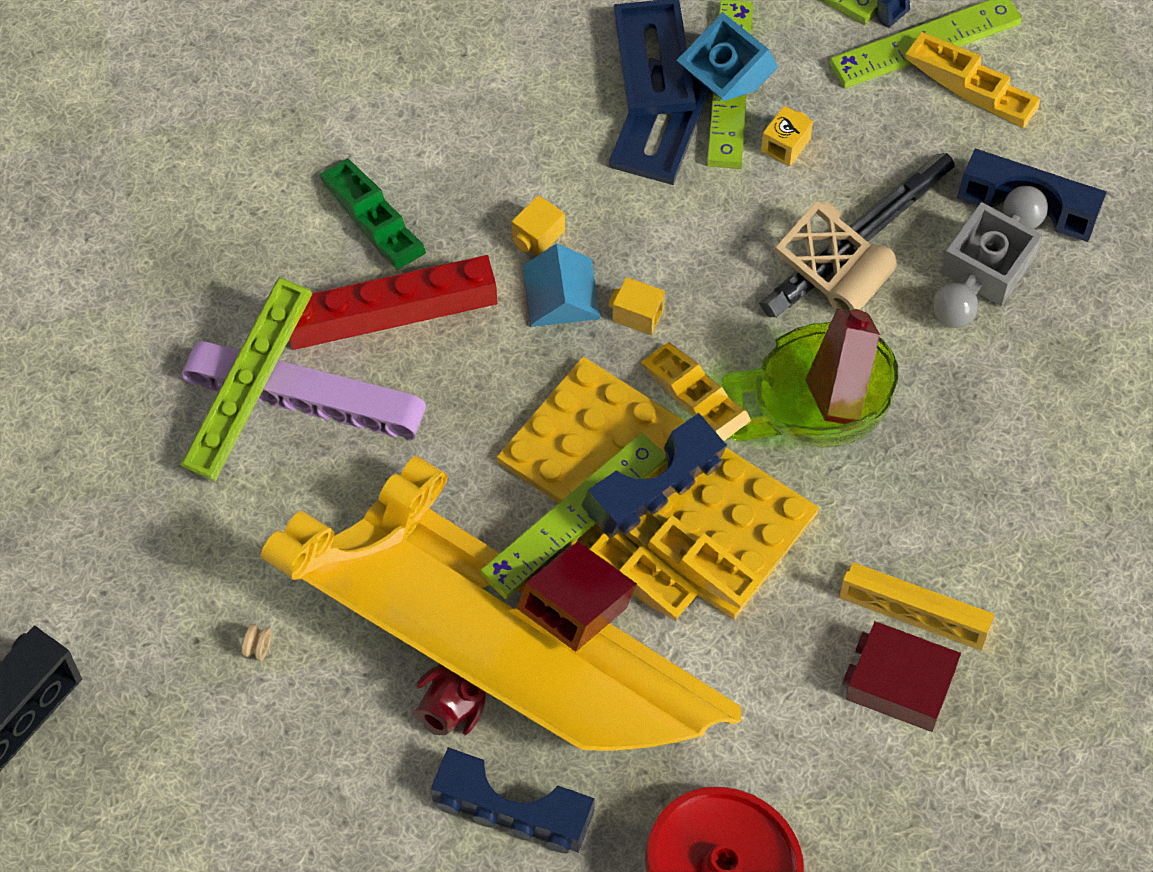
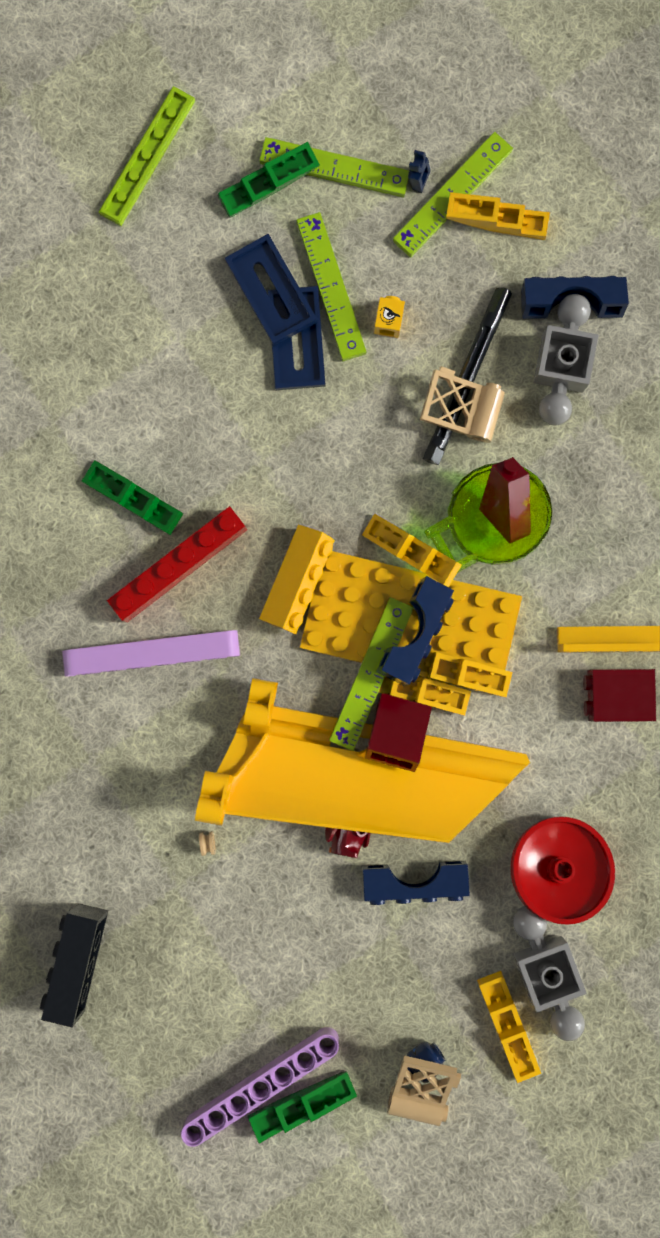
camera: 15 degrees left, 25 degrees up
(246, 379) = (112, 667): lime tile -> none
(531, 372) = (297, 579): none -> yellow brick
(537, 226) = (250, 463): yellow brick -> none
(560, 287) = (286, 502): dark azure slope -> none
(637, 305) = (343, 496): yellow brick -> none
(728, 59) = (326, 277): dark azure slope -> none

